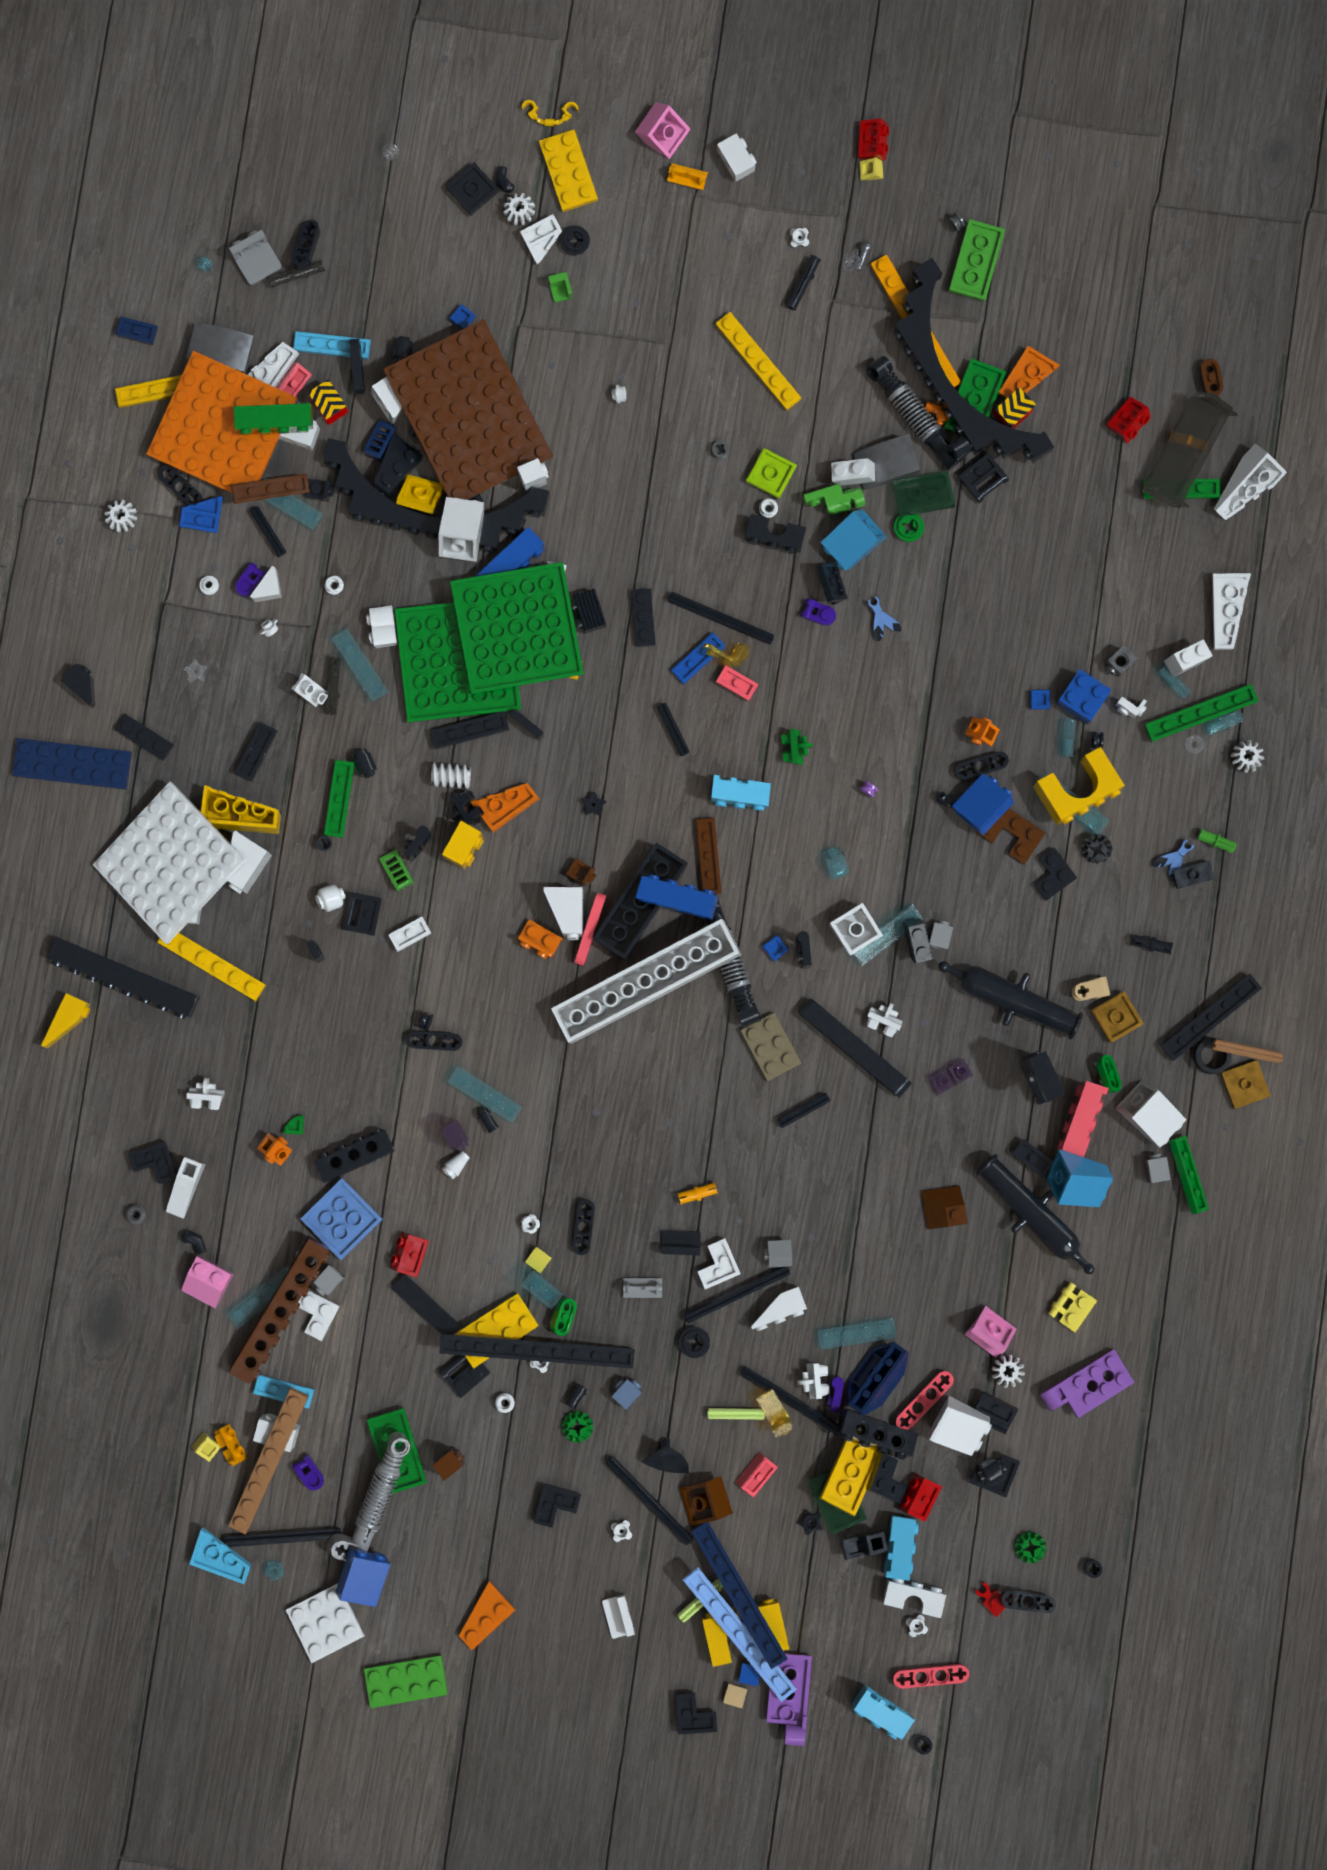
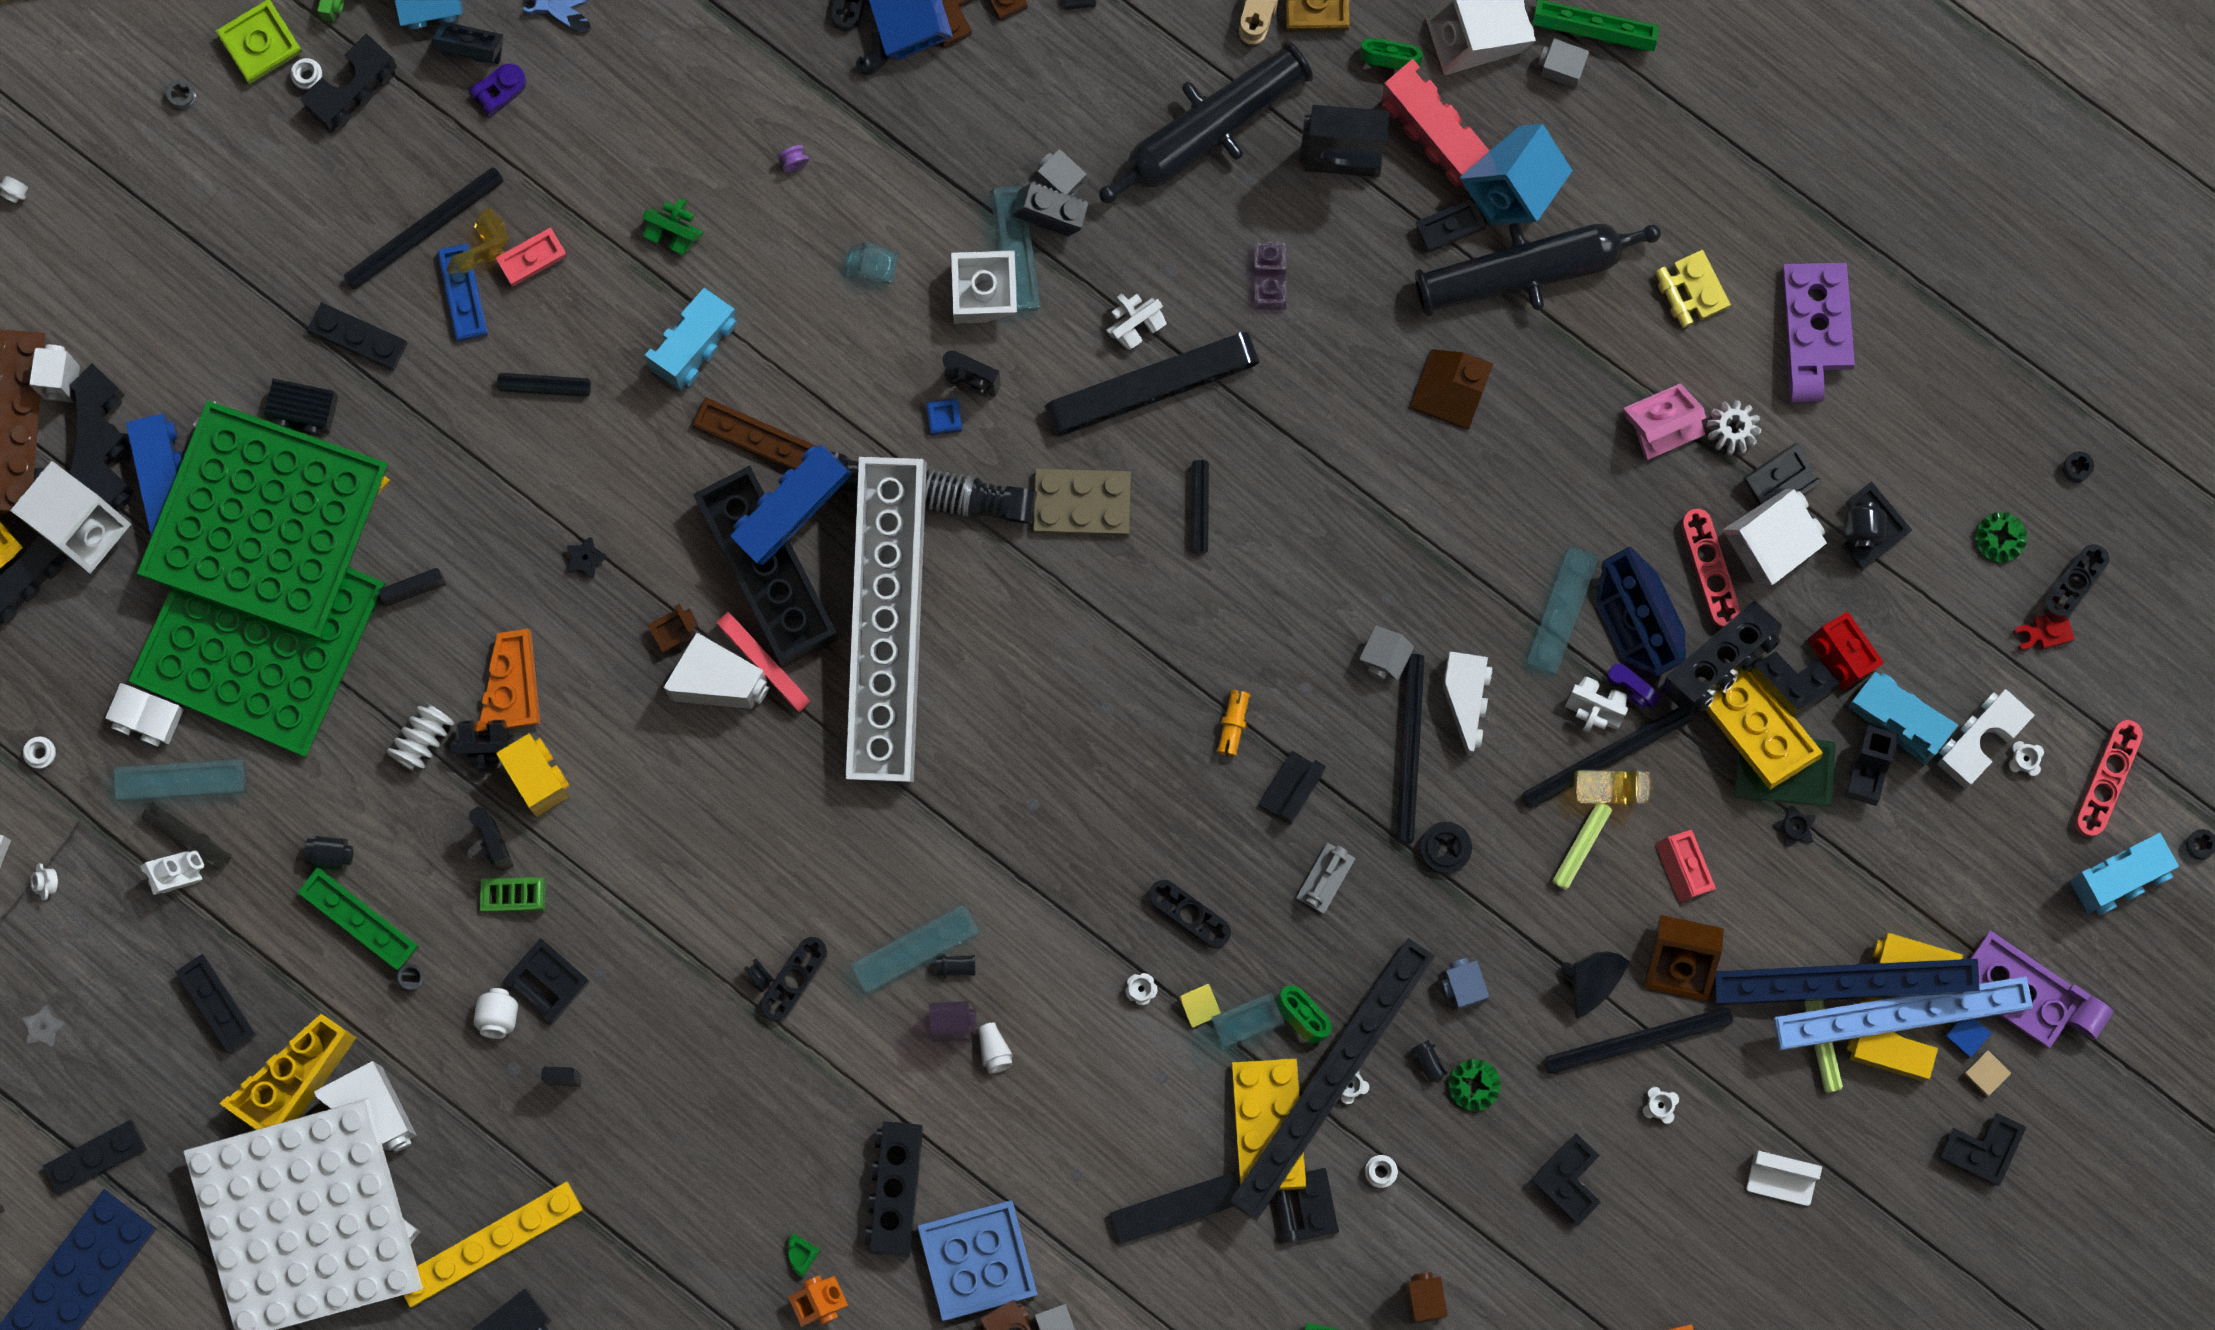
camera: 60 degrees left, 5 degrees down
(408, 1254) = (1085, 1190): red bracket -> none
(410, 934) = (617, 927): white plate -> none
(470, 730) = (371, 673): black plate -> none
(539, 939) = (735, 744): orange bracket -> none
(724, 1266) = (1363, 745): white plate -> none

